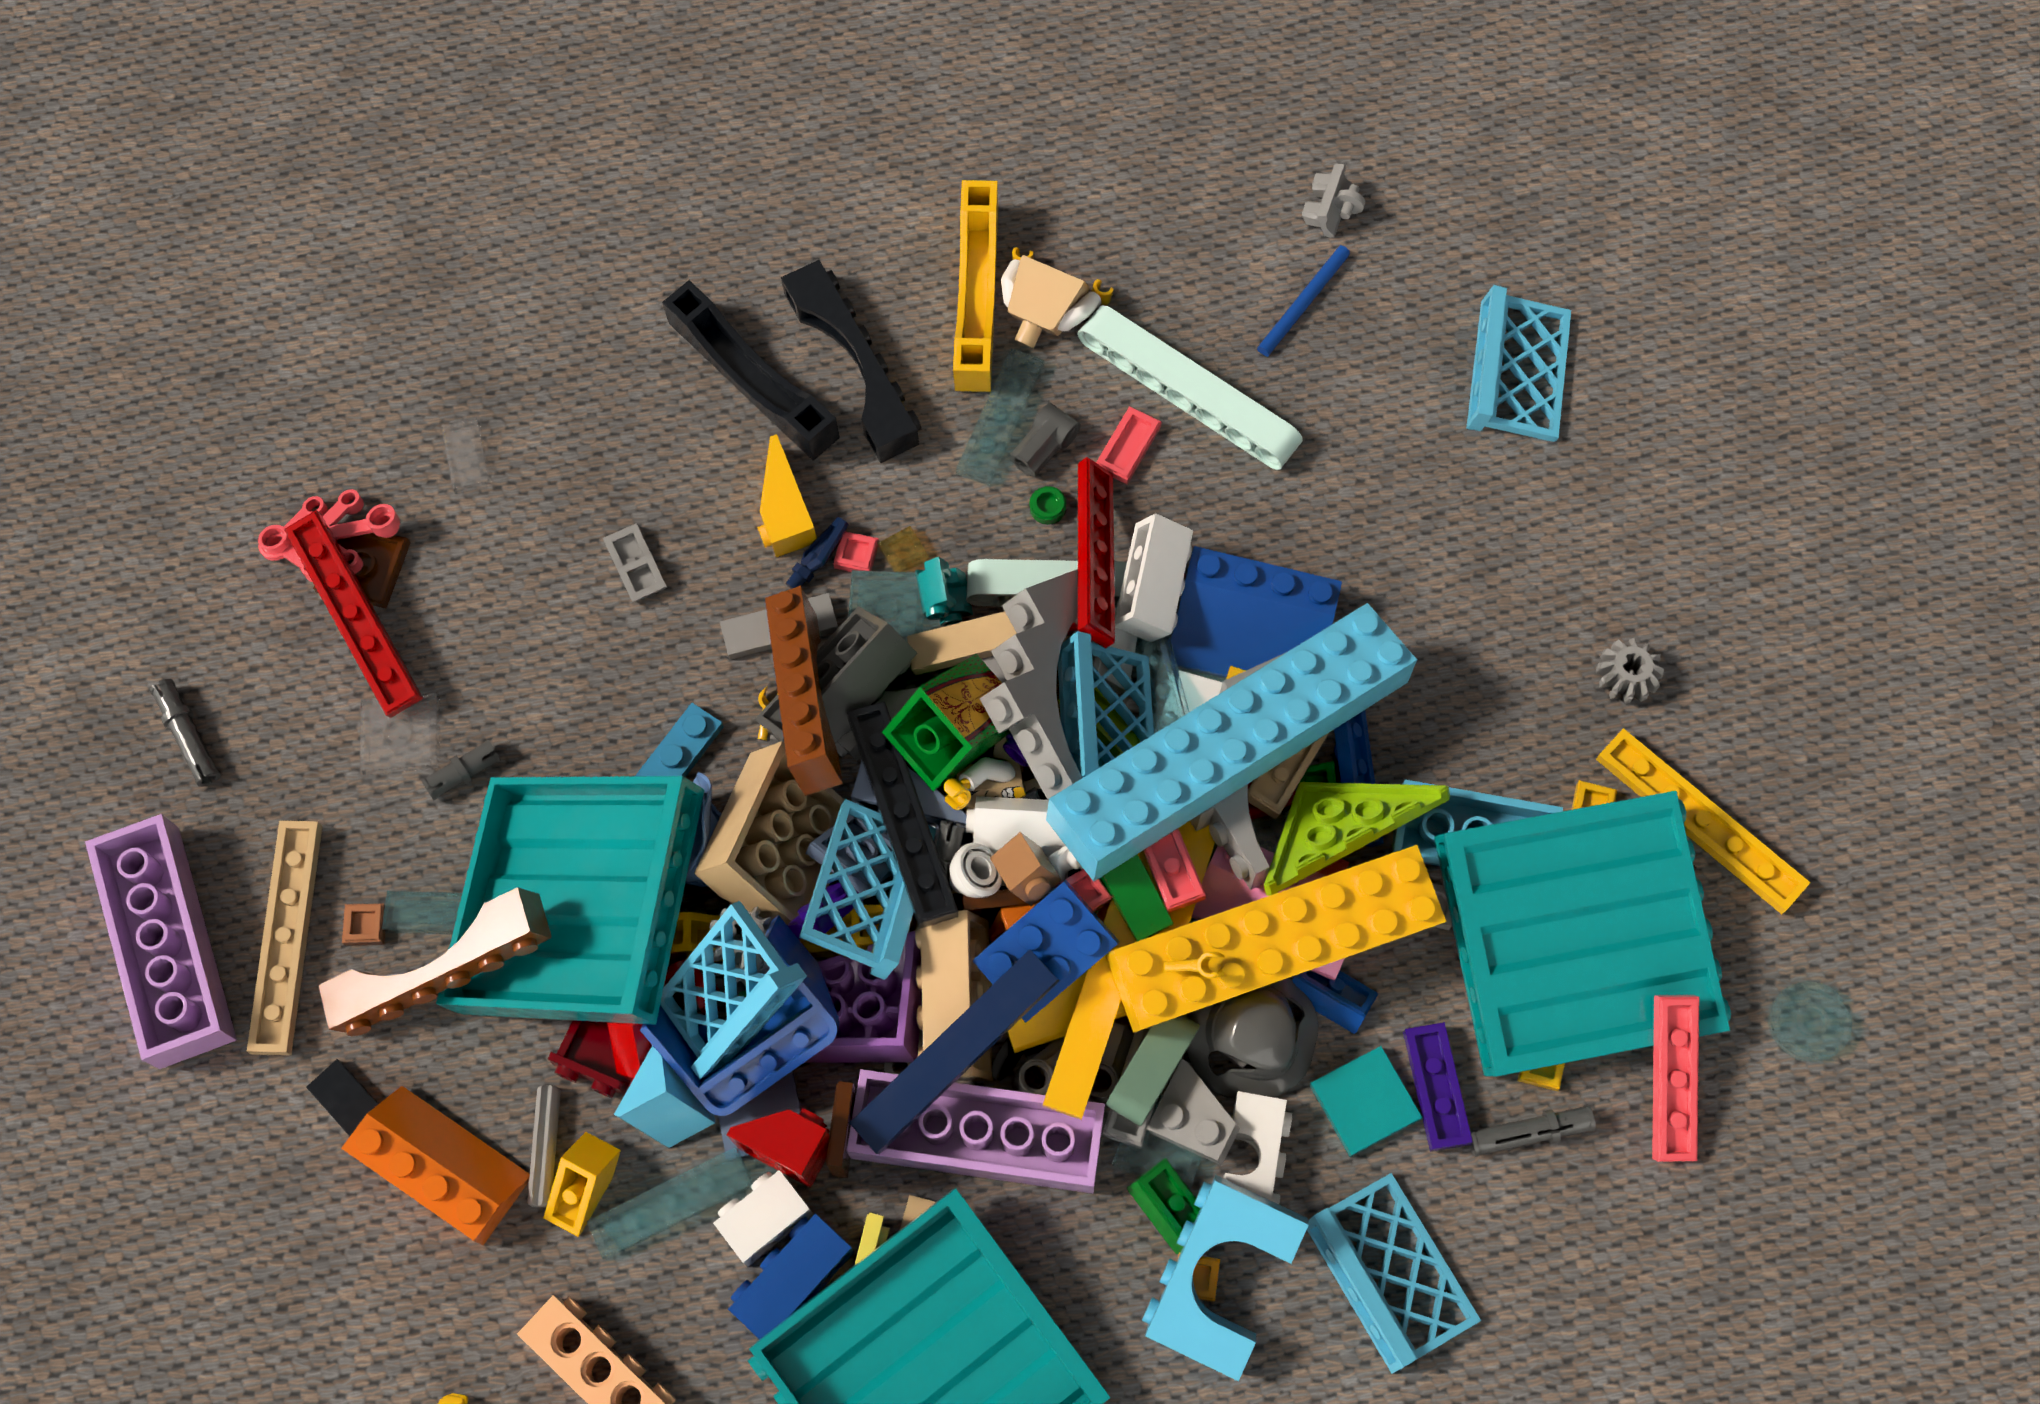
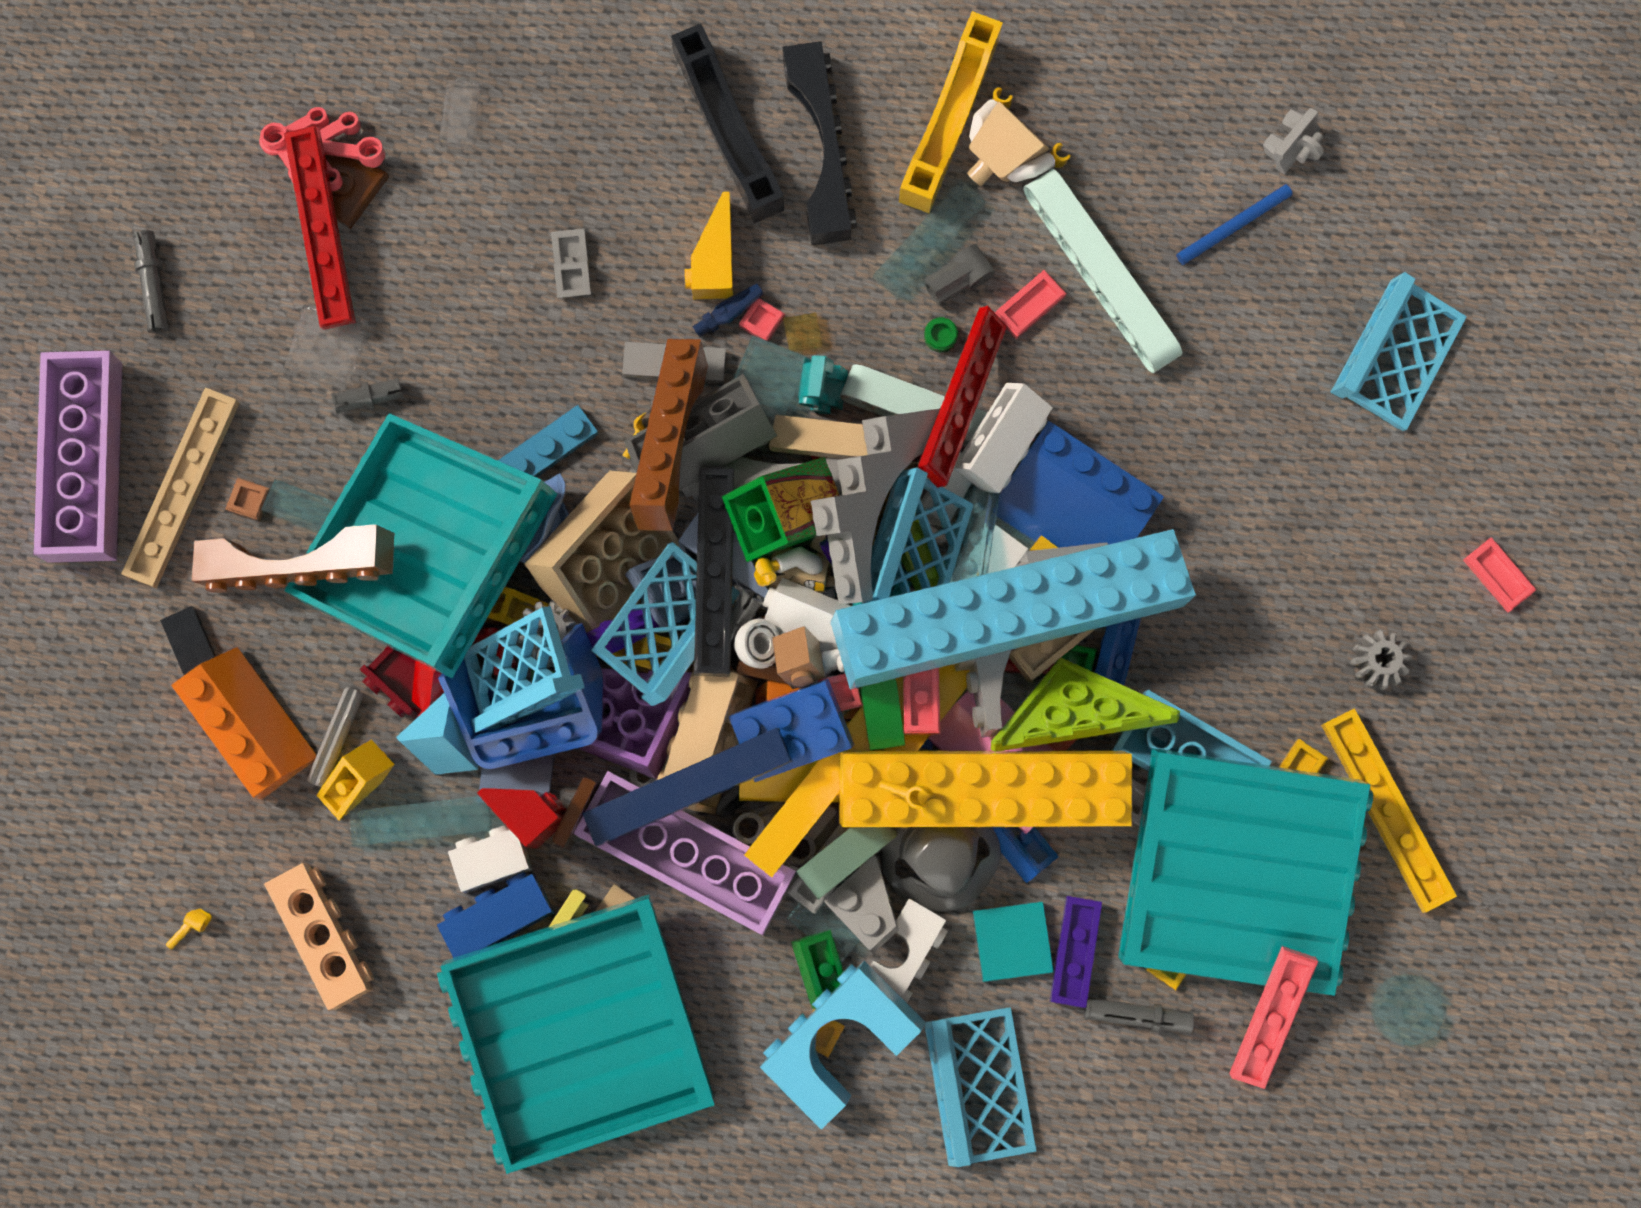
camera: 15 degrees right, 10 degrees up
(1712, 547) = (1499, 574): none -> coral tile

